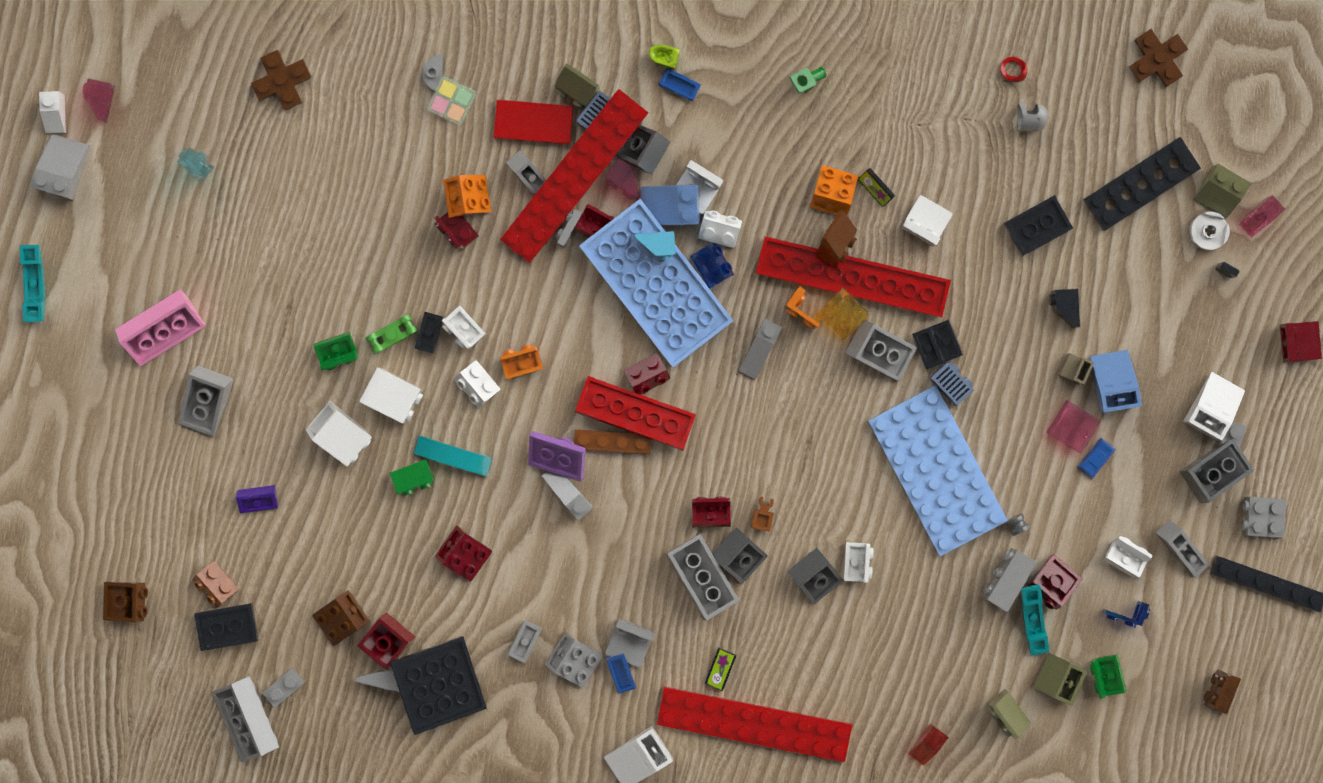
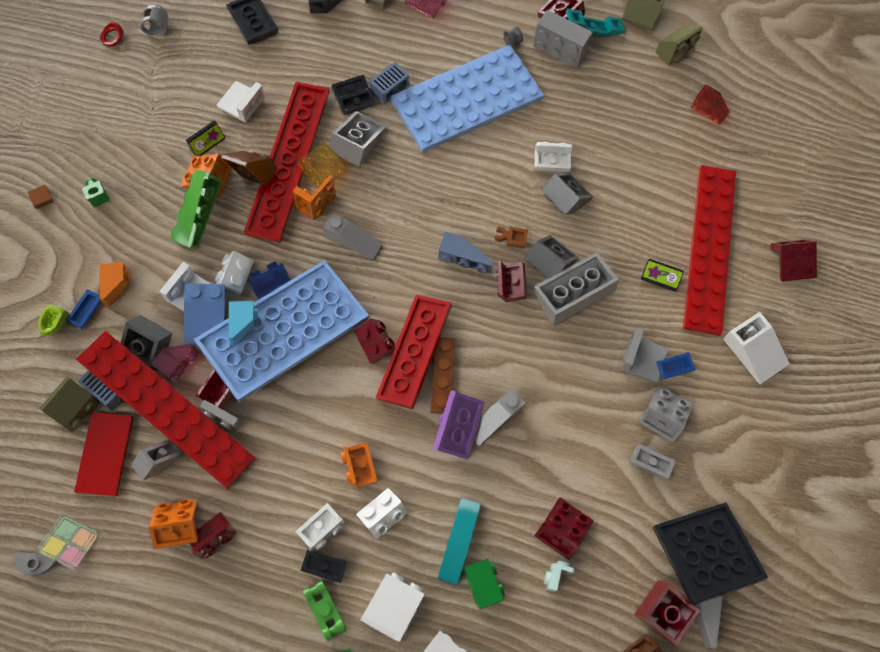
camera: 95 degrees left, 20 degrees down
(418, 540) = (552, 578): none -> light aqua bracket
(708, 109) = (113, 281): none -> orange slope
(746, 458) = (460, 251): none -> sand blue slope
(784, 187) = (196, 209): none -> bright green wedge
(806, 21) = (40, 196): none -> dark orange tile

